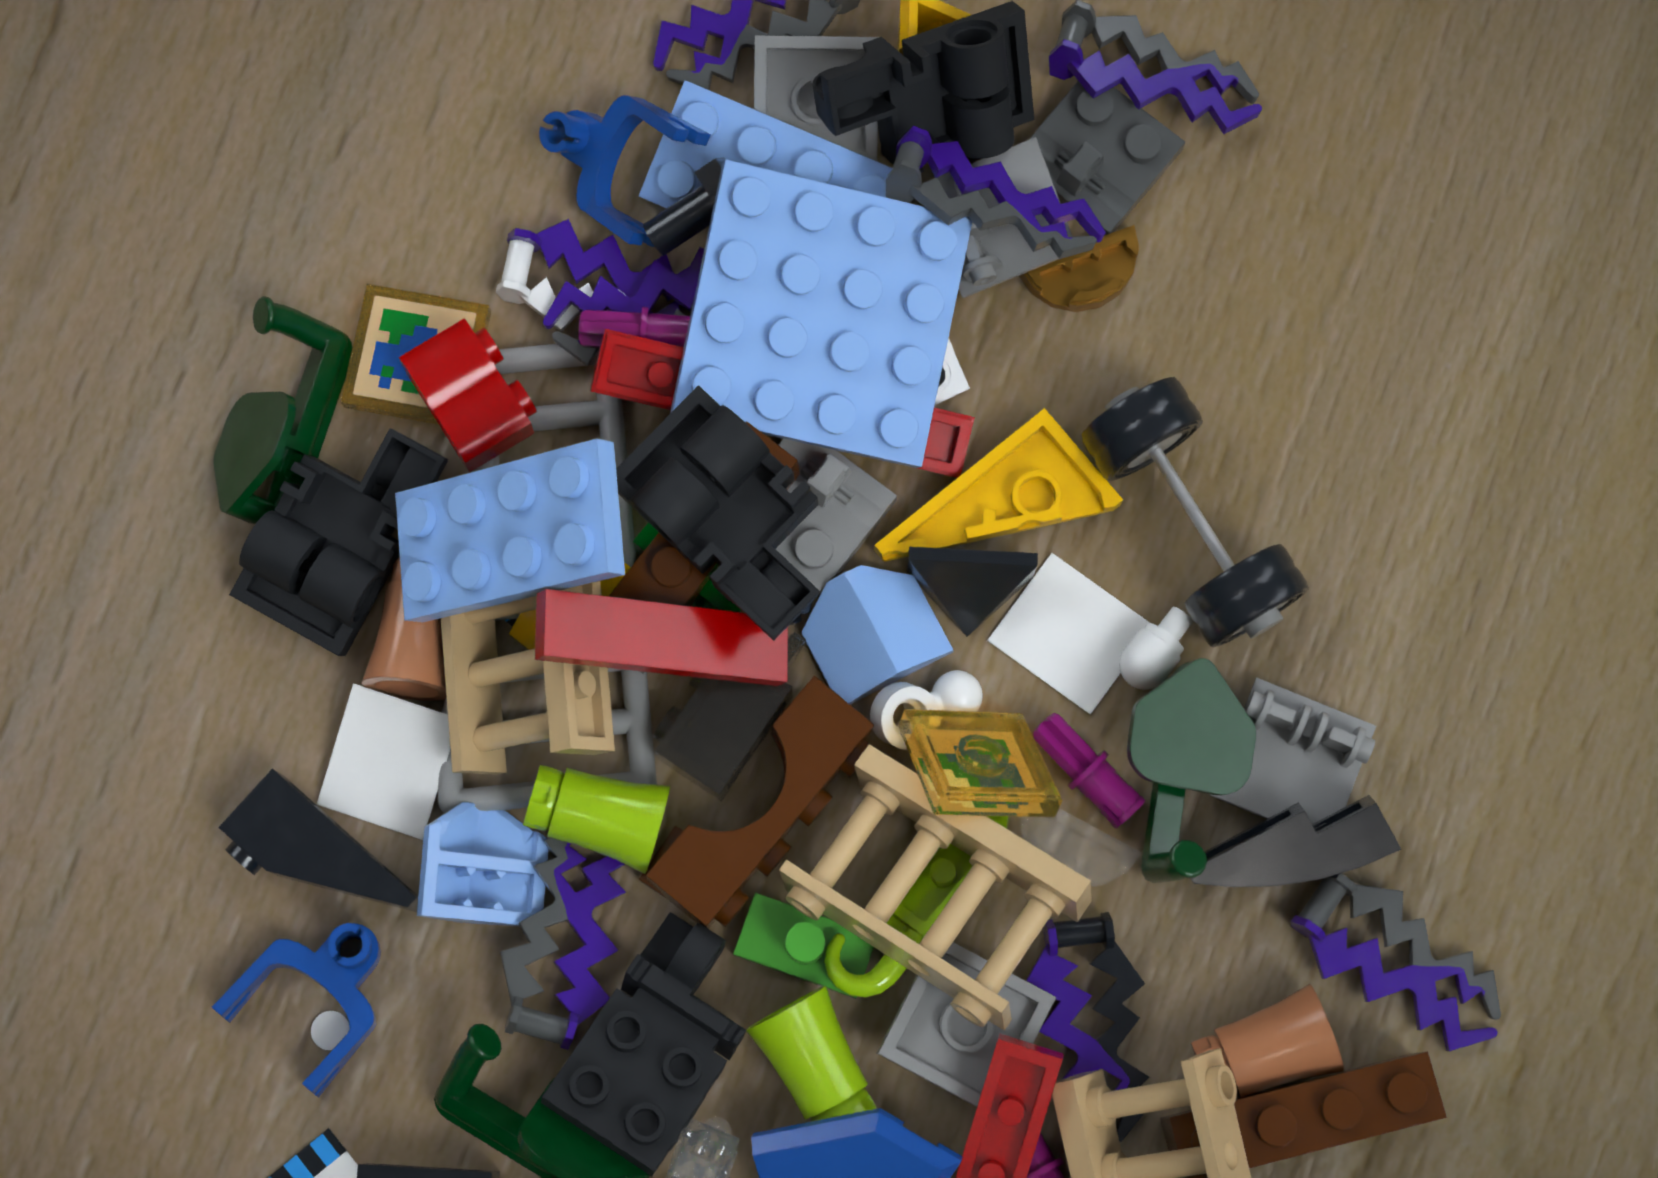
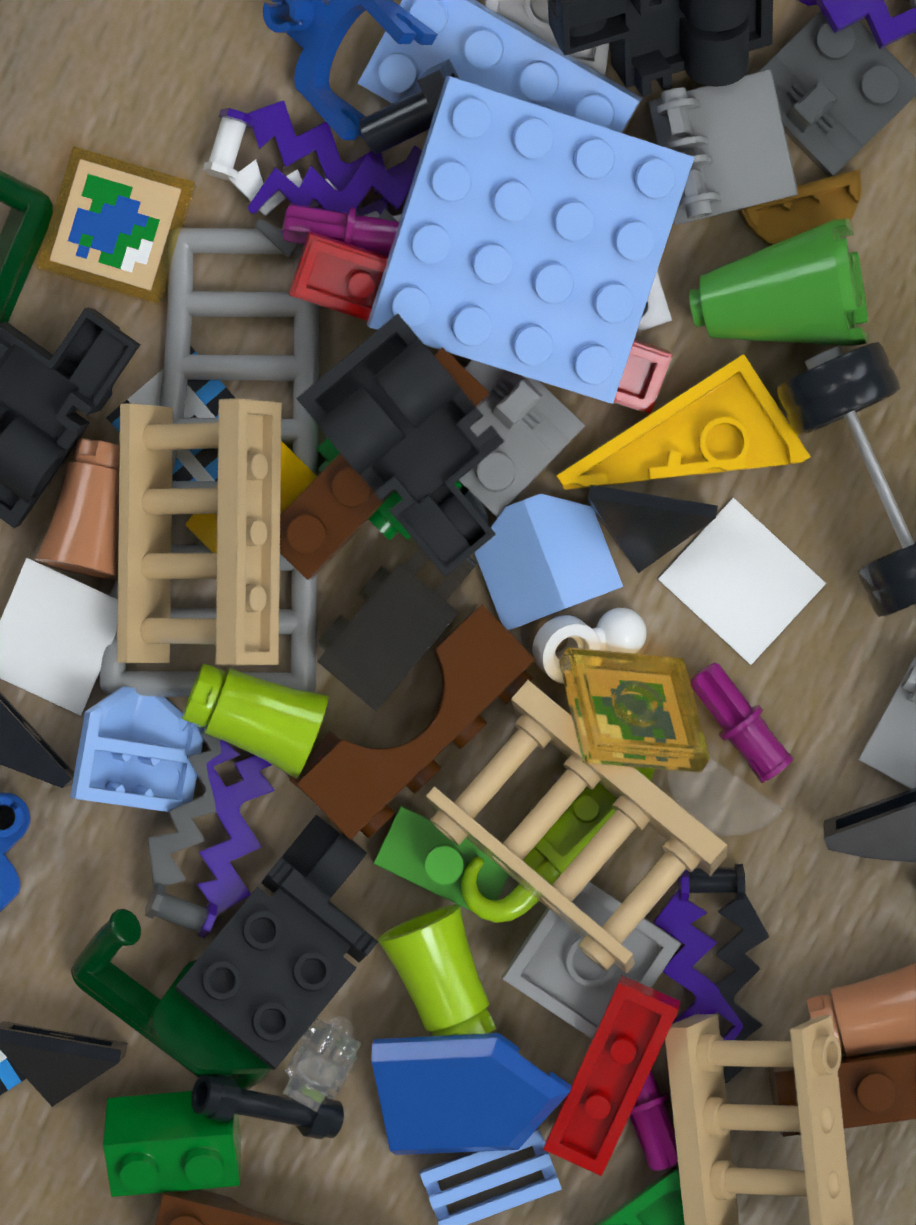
camera: 10 degrees right, 10 degrees up
(468, 394) = (166, 279): red brick -> none
(510, 531) = (196, 440): light blue plate -> none
(657, 638) = (328, 561): tile -> none
(1014, 207) = (739, 147): piece -> none
(1079, 343) = (788, 292): none -> bright green cone
(1154, 651) = (822, 611): white cylinder -> none
(1188, 738) = (844, 709): dark green piece -> none

